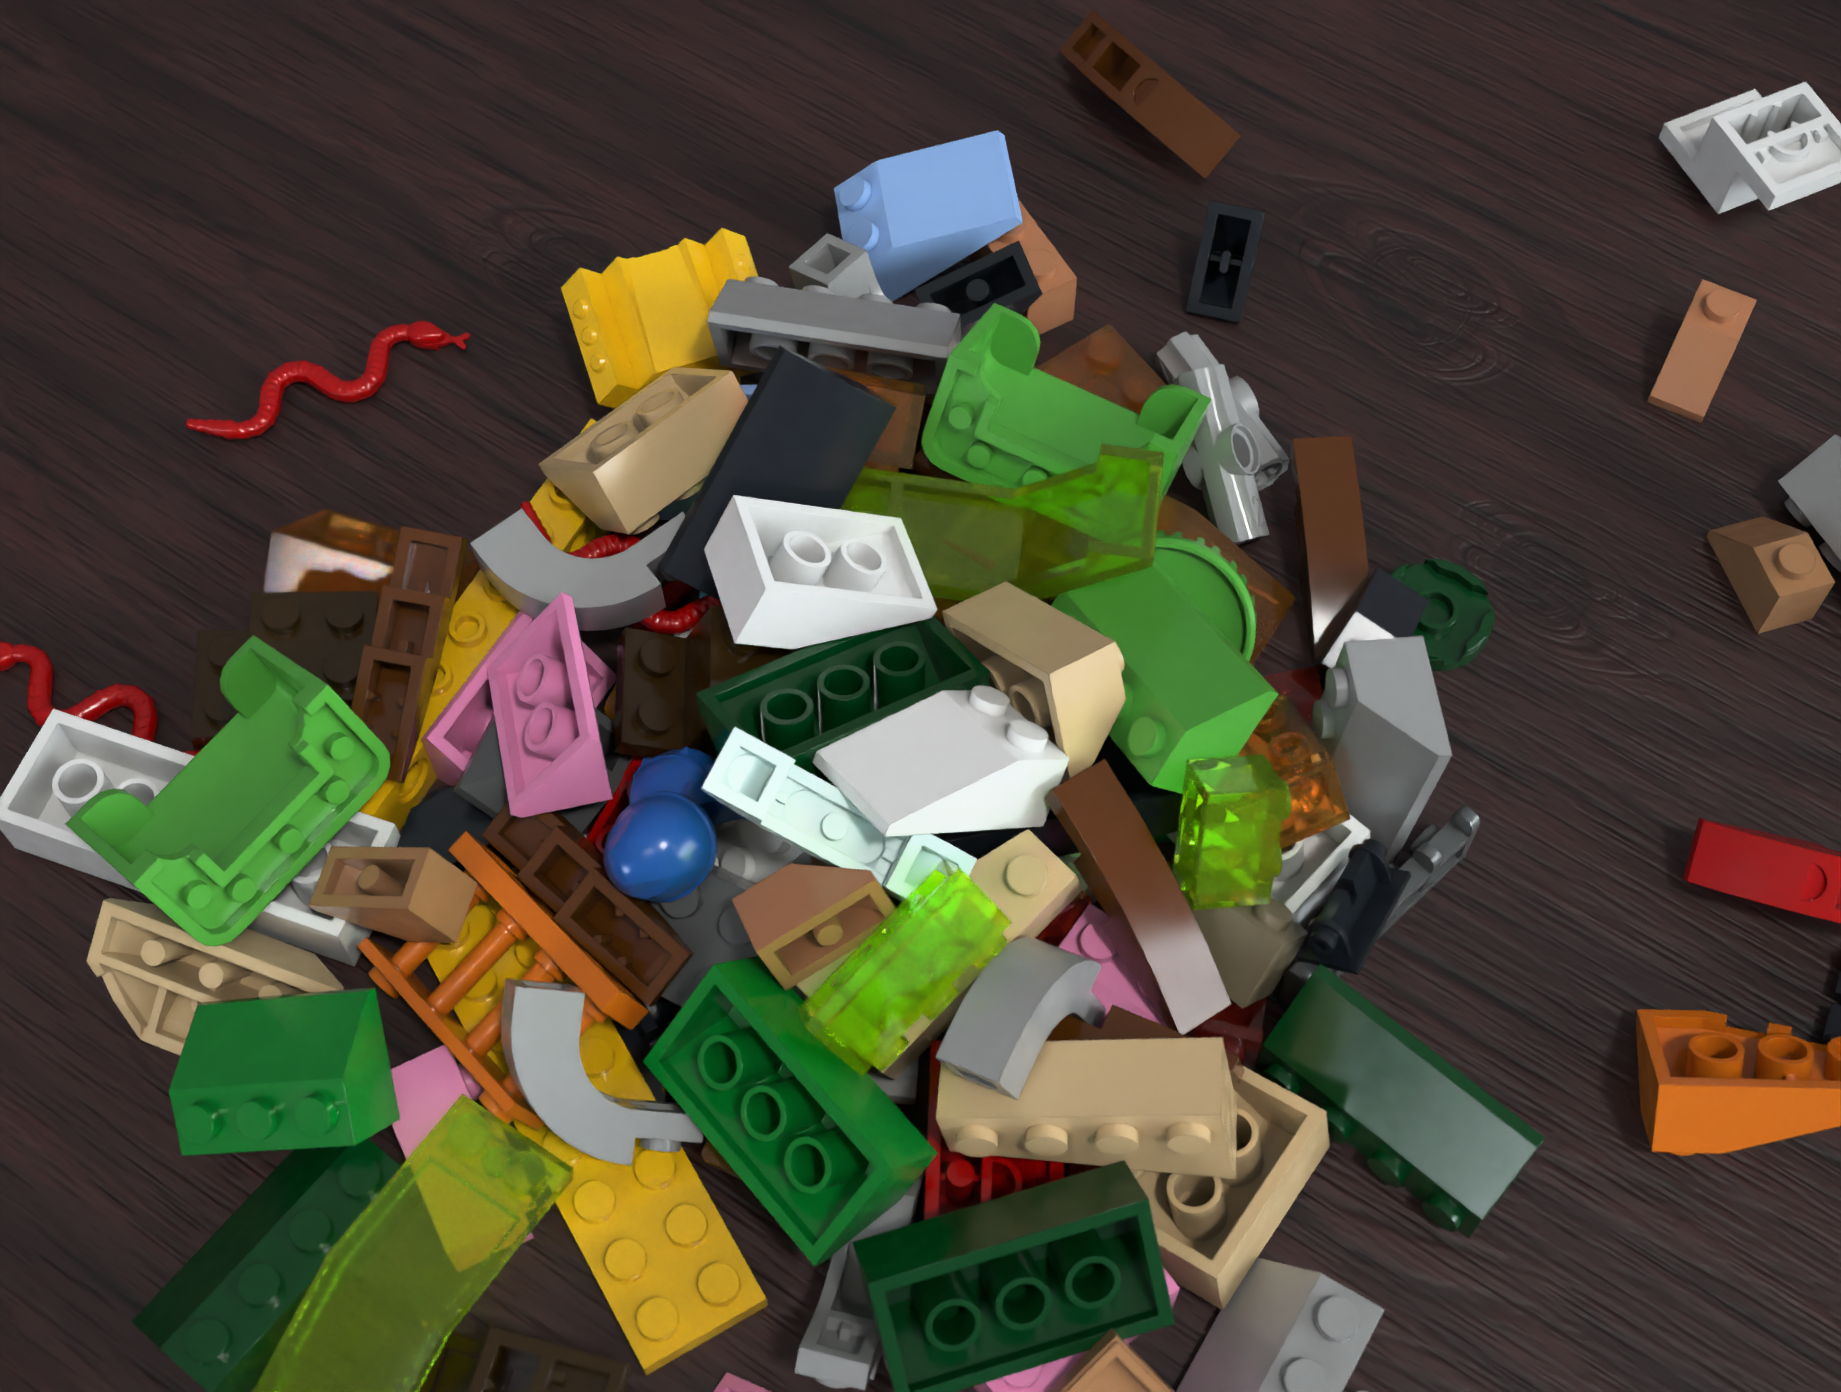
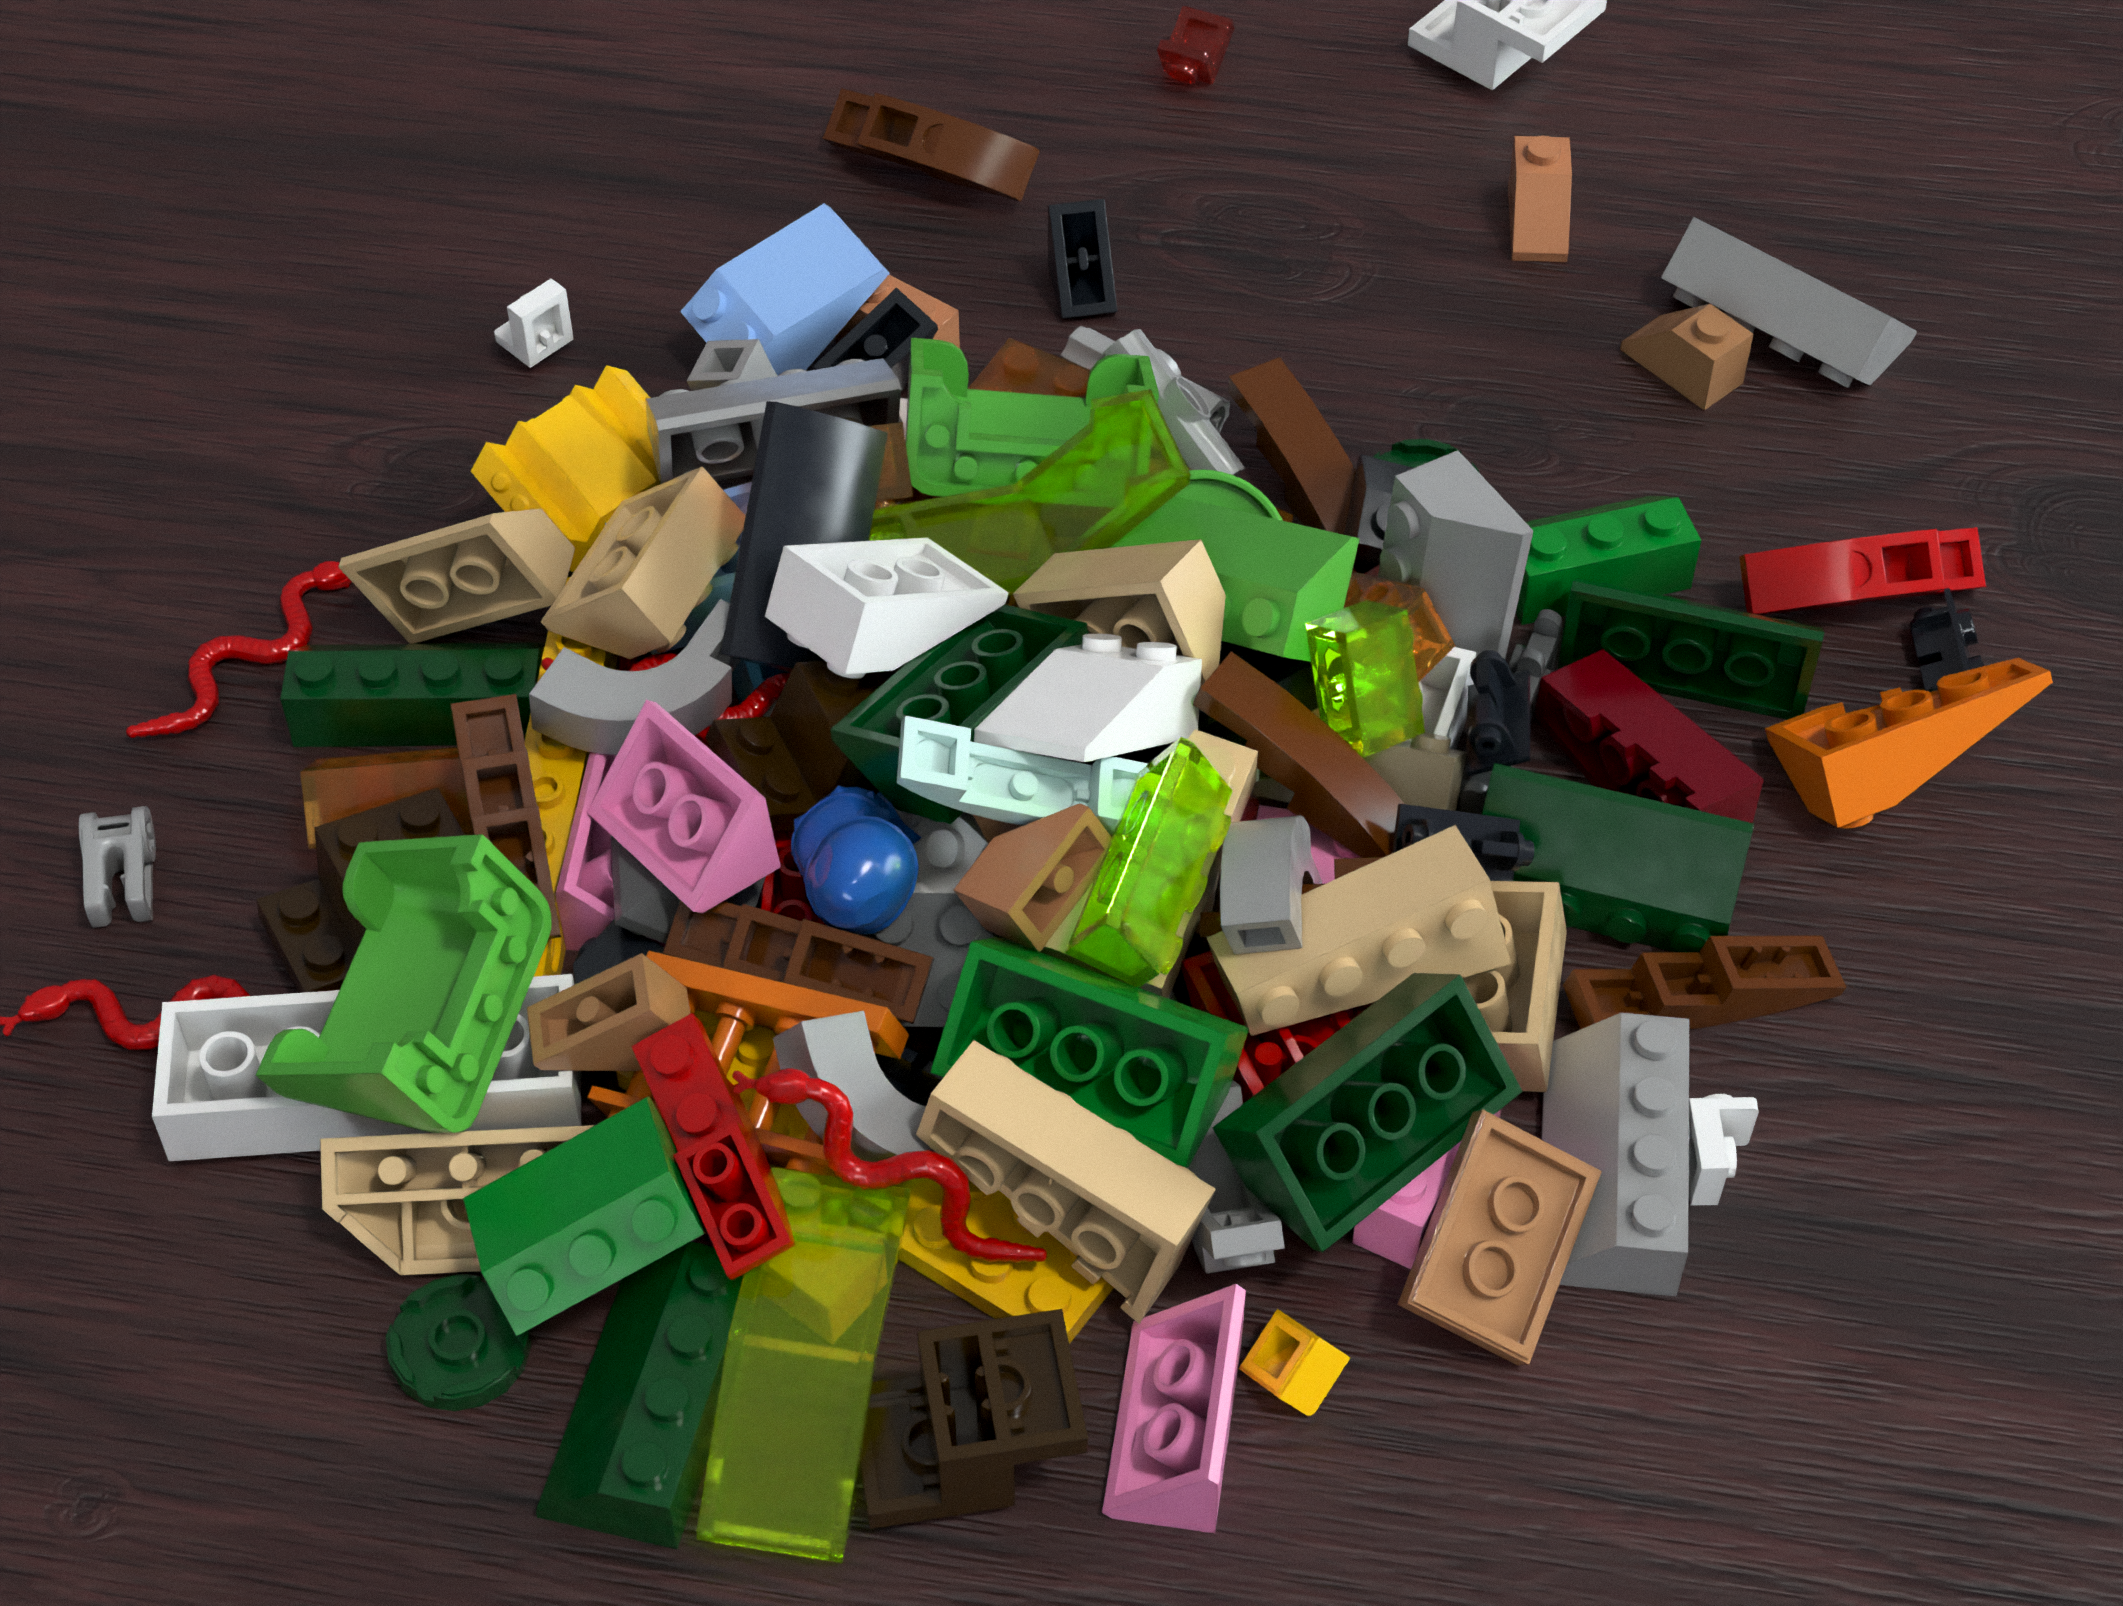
camera: 25 degrees left, 10 degrees down
(111, 548) = (114, 846): none -> light grey piece
(135, 1134) = (455, 1345): none -> dark green tile
(418, 468) = (398, 690): none -> dark green slope
(419, 1067) = (715, 1147): none -> red slope
(478, 1050) = (795, 1087): none -> red animal
(512, 386) = (464, 573): none -> tan slope
(705, 1219) = (1067, 1174): none -> tan wedge
(710, 154) = (537, 324): none -> white bracket
(1253, 1030) = (1491, 838): none -> black hinge
(1436, 1265) = (1712, 987): none -> reddish brown slope
(1449, 73) = (1196, 46): none -> clear red bracket
(1497, 995) = (1639, 742): none -> dark red wedge
(1561, 752) = (1627, 543): none -> green slope
(1602, 893) = (1695, 648): none -> dark green slope

